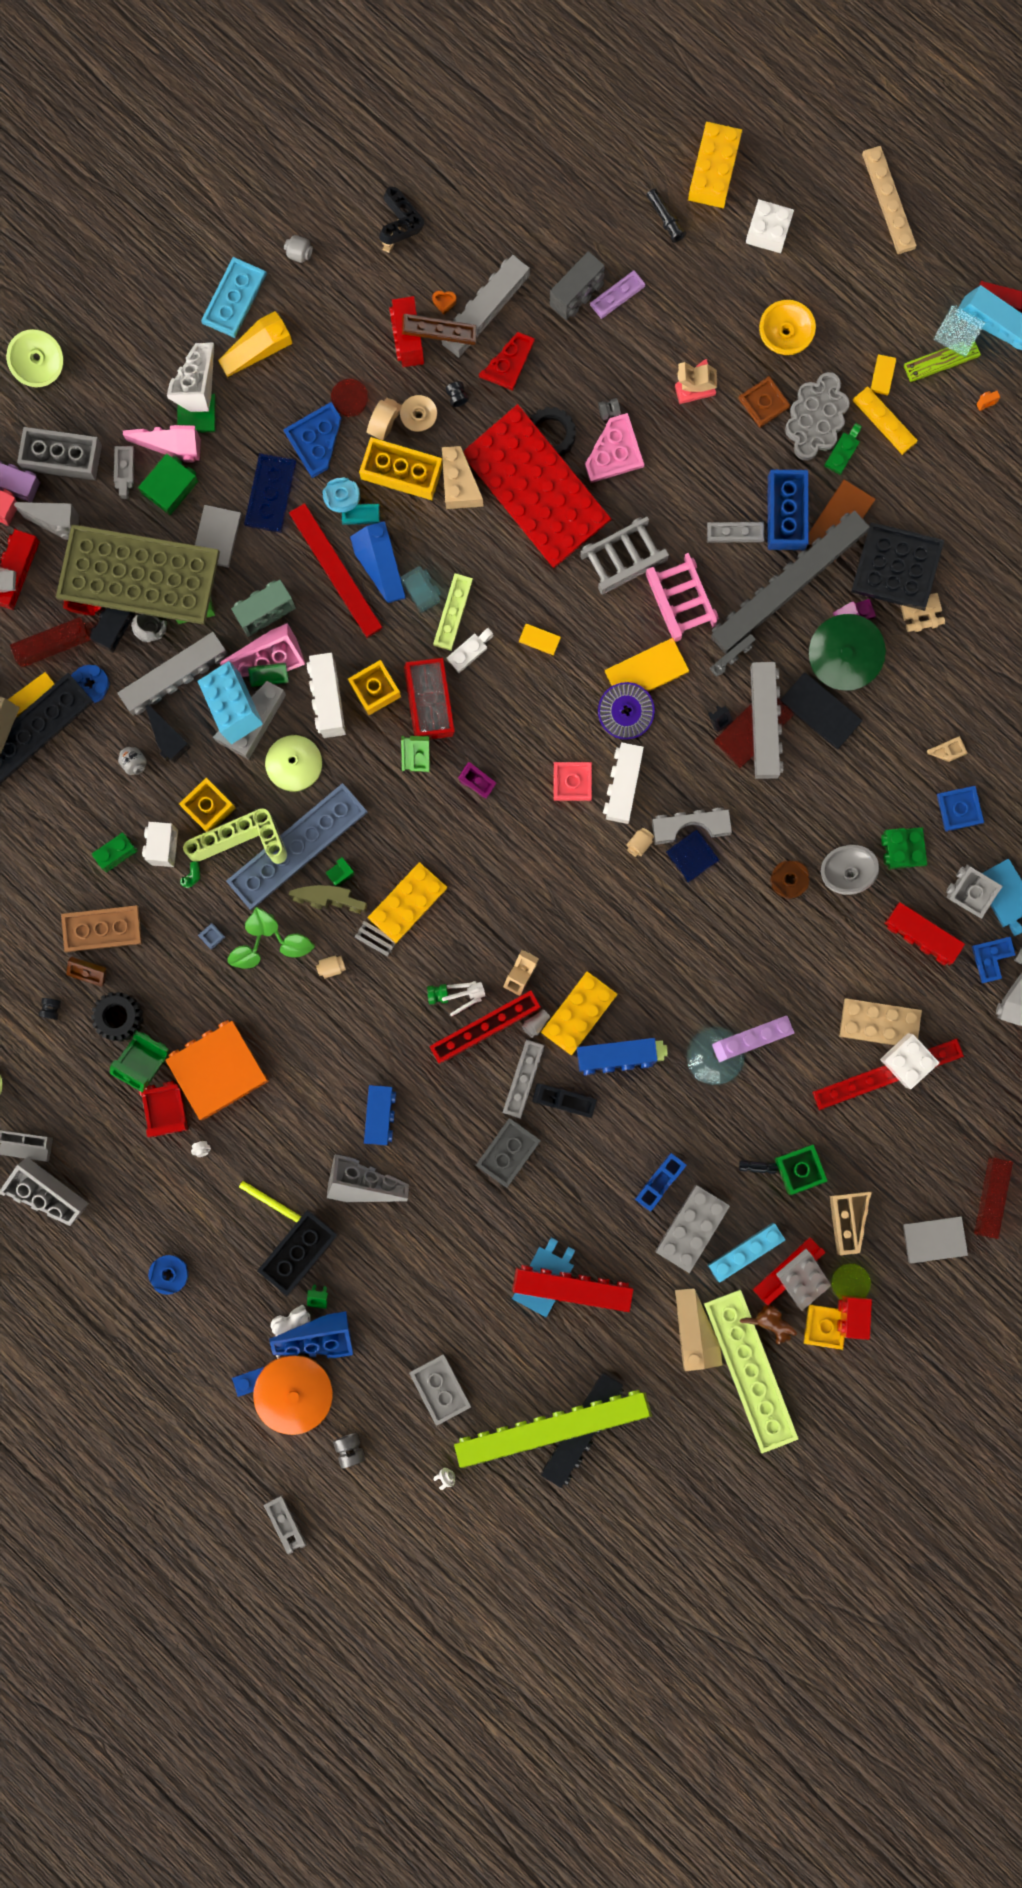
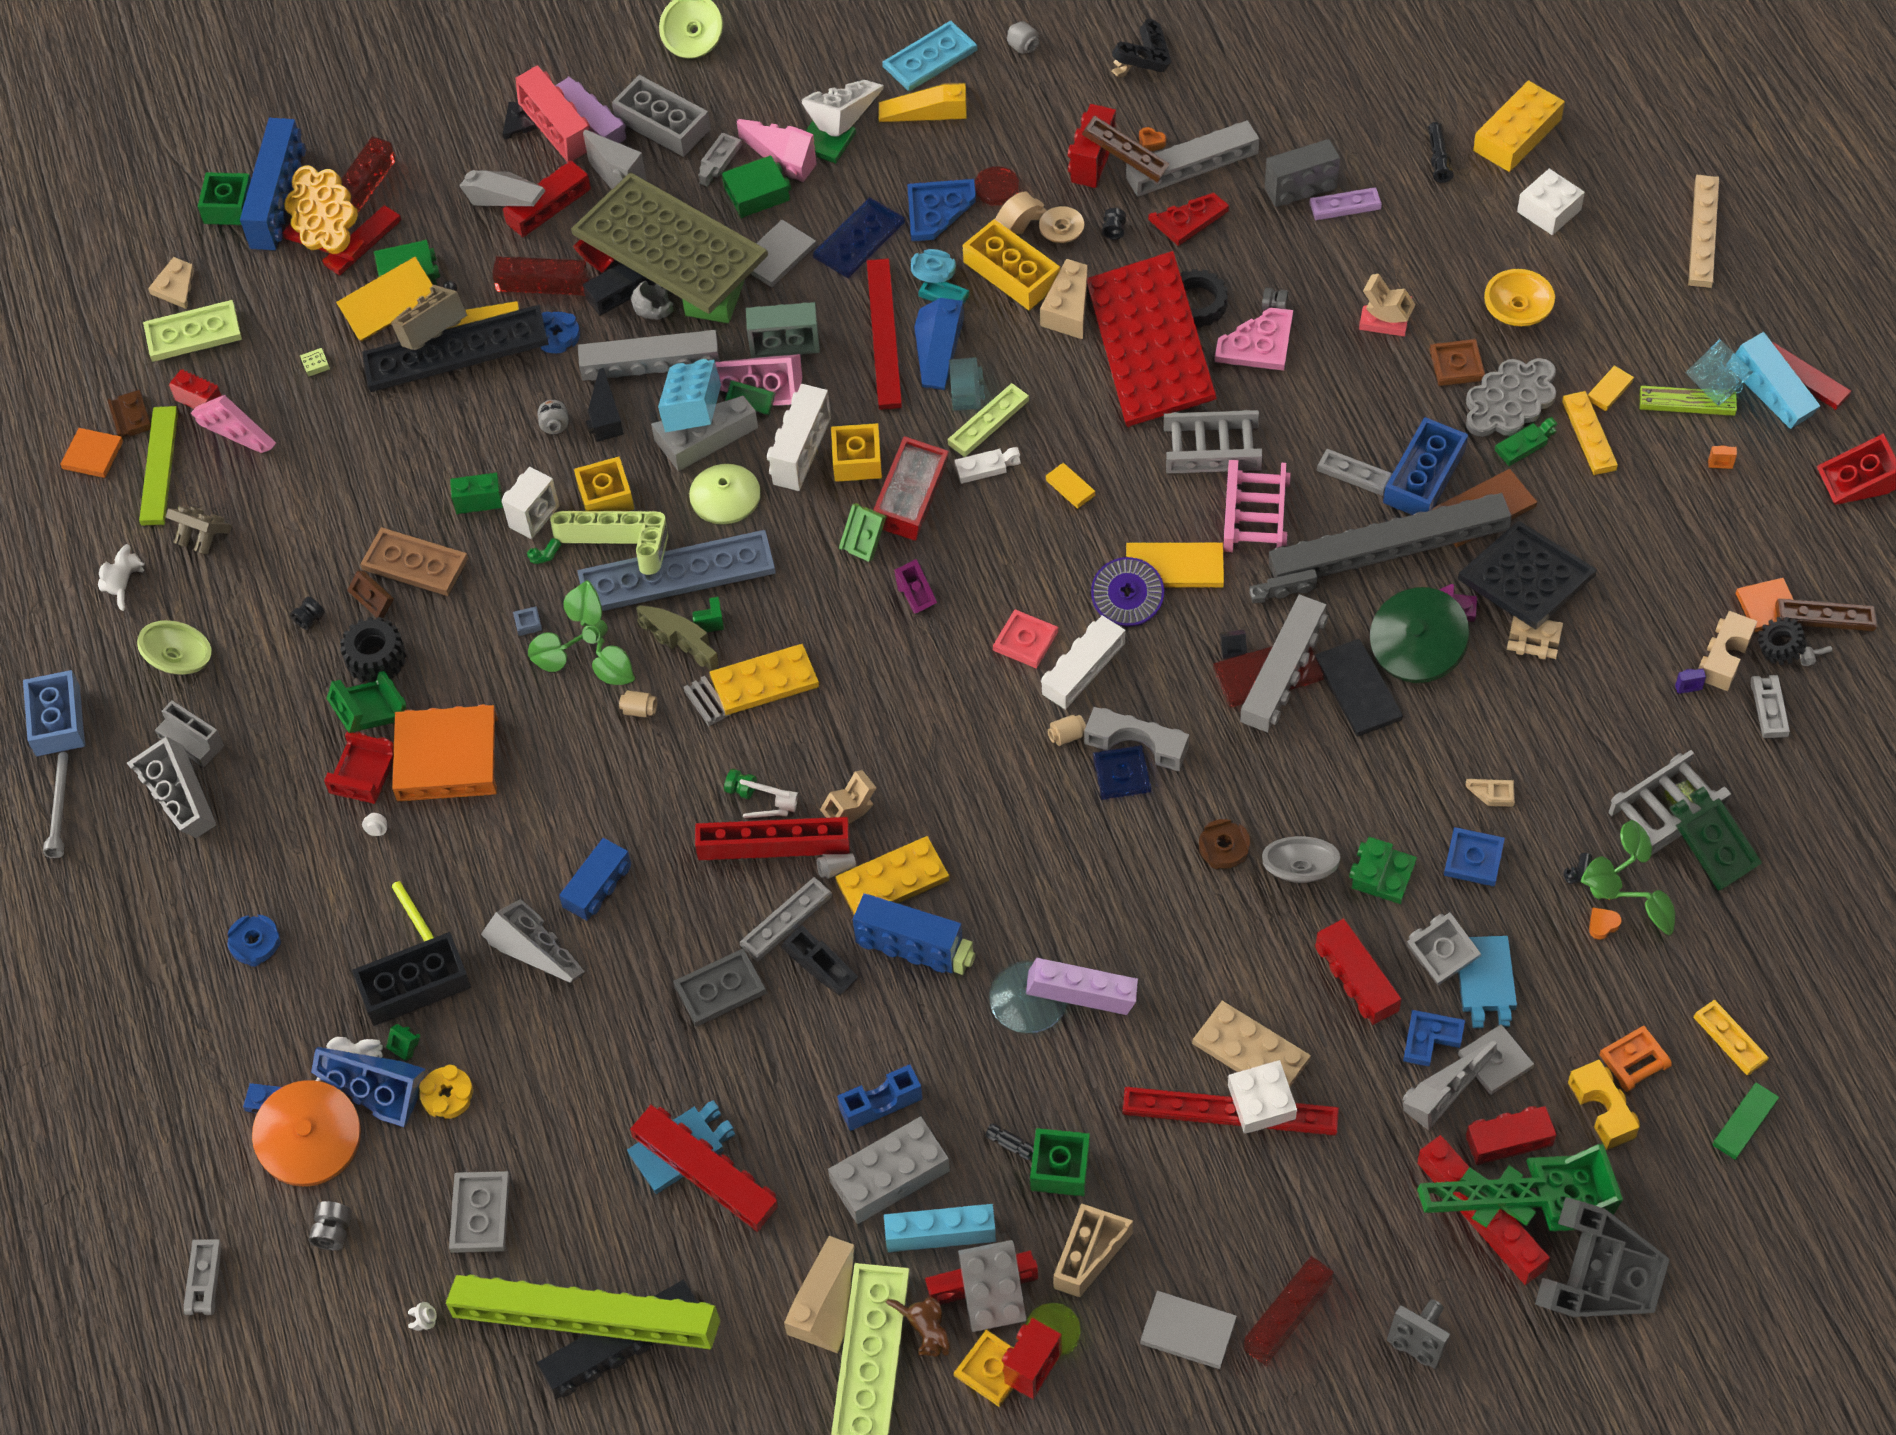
camera: 25 degrees right, 25 degrees down
(357, 1322) = (443, 1078): none -> yellow plate

